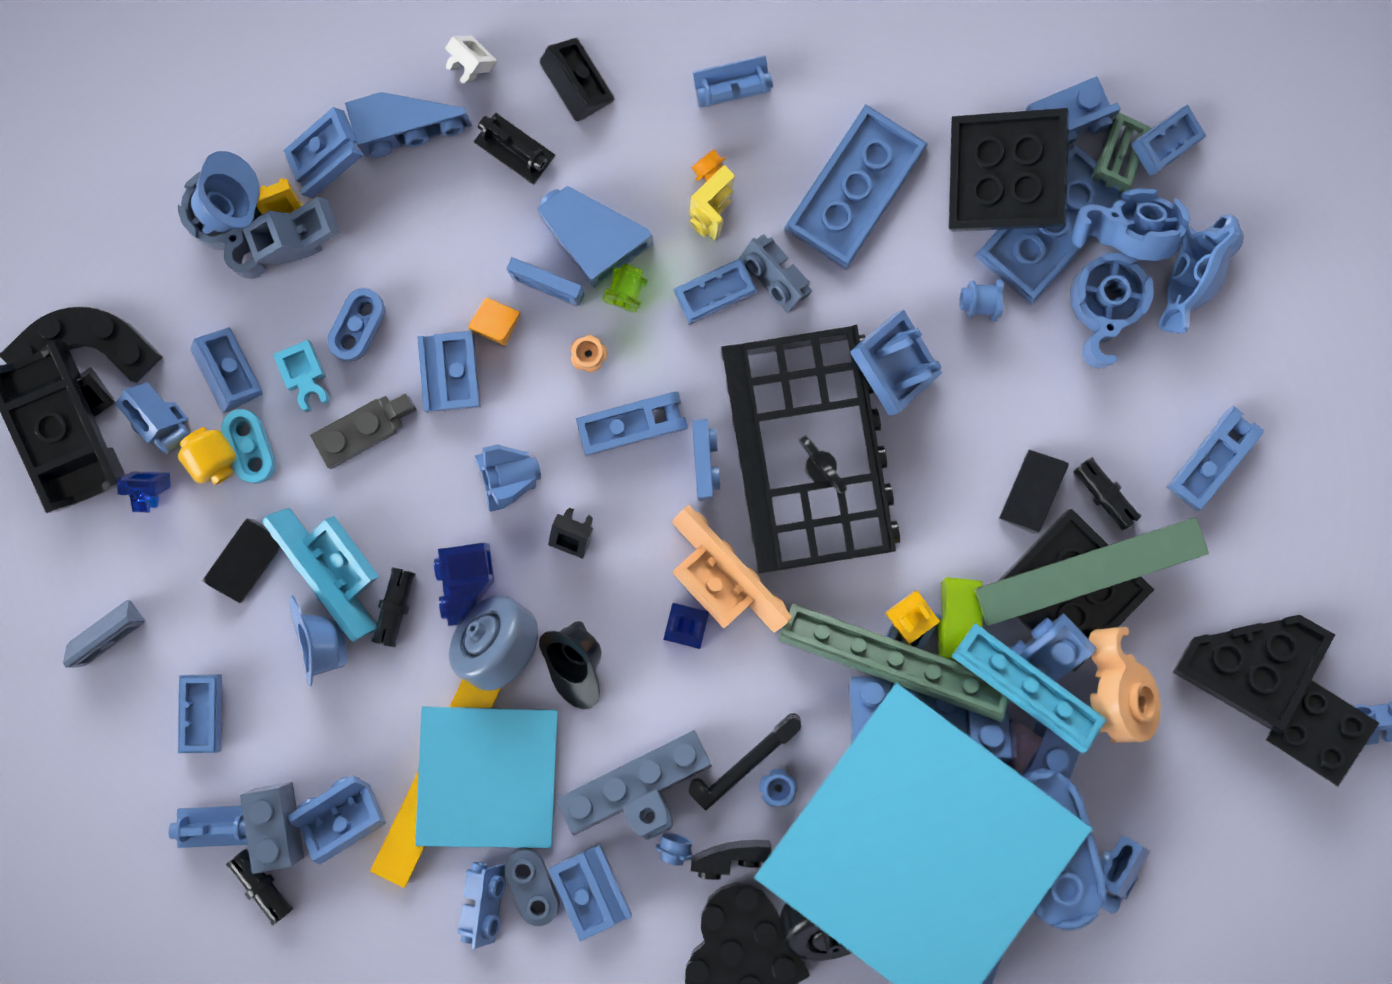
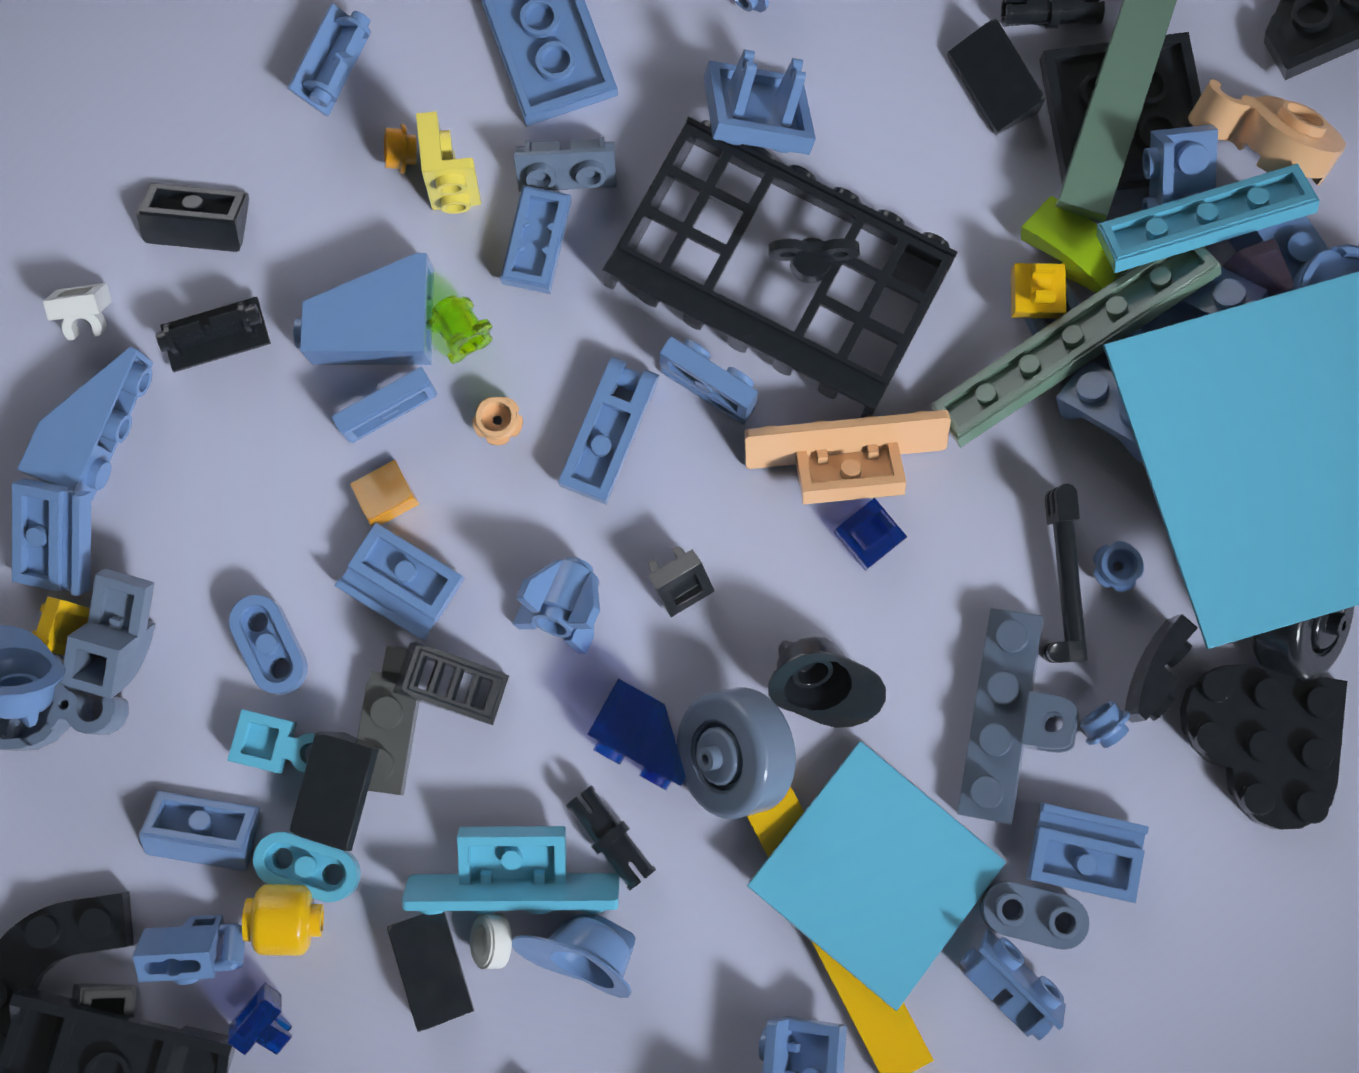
camera: 55 degrees left, 5 degrees down
(283, 583) = (491, 941): none -> white tile
(301, 428) = (334, 789): none -> black slope
(402, 419) = (412, 670): none -> black slope

